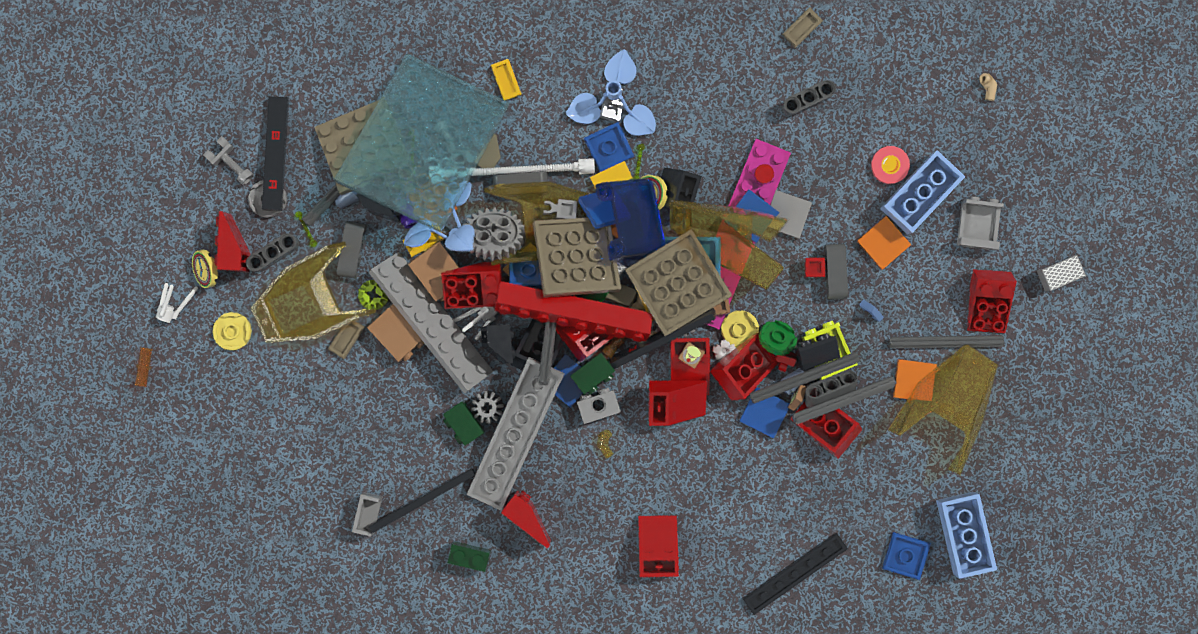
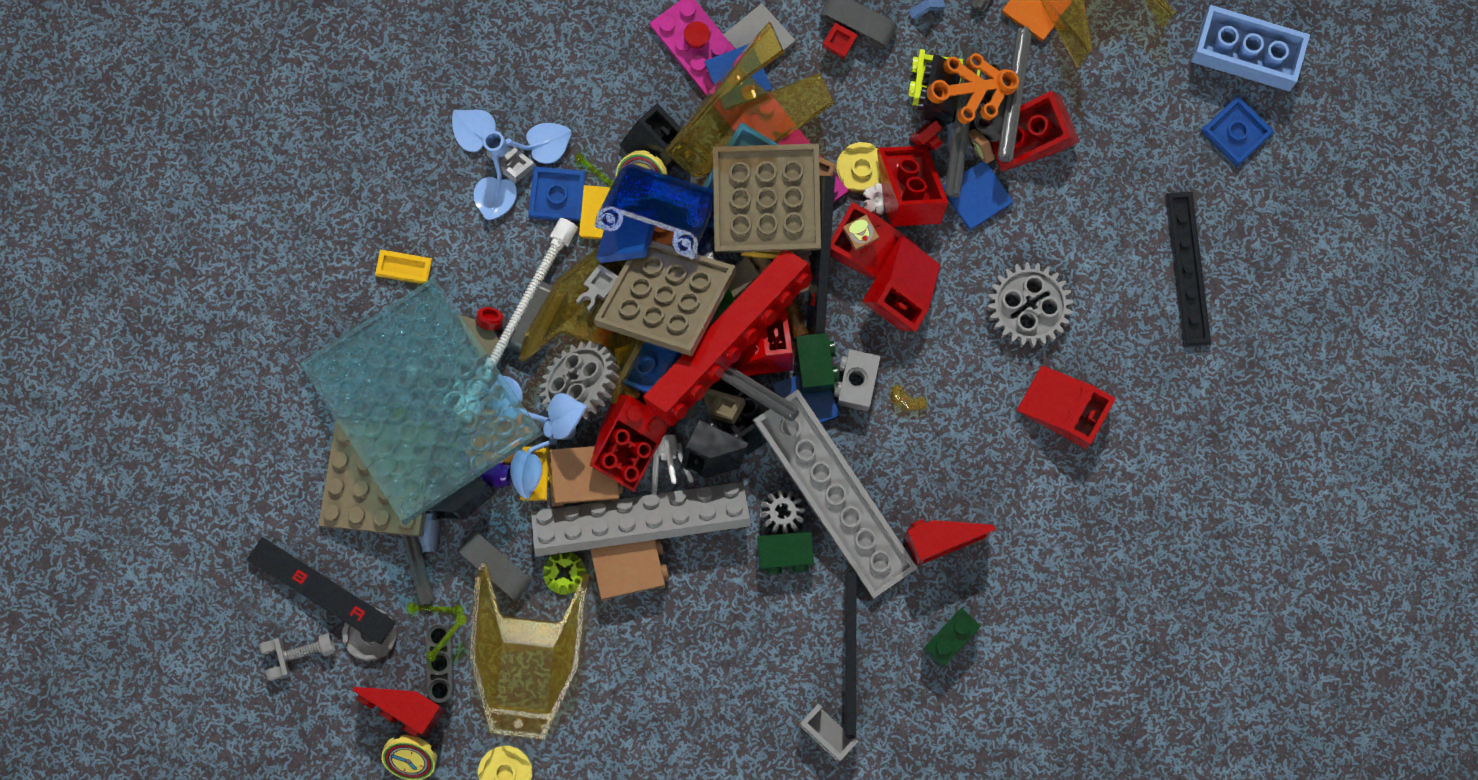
camera: 65 degrees left, 10 degrees down
(304, 250) = (460, 621): none -> clear neon green hinge
(346, 339) = (599, 638): dark tan tile -> none
(503, 153) = (489, 318): none -> red tile
(530, 333) = (723, 405): none -> dark tan tile
(702, 502) = (1016, 286): none -> light grey gear
(777, 338) = (897, 128): green tile -> none
(831, 375) = (975, 85): none -> orange plant

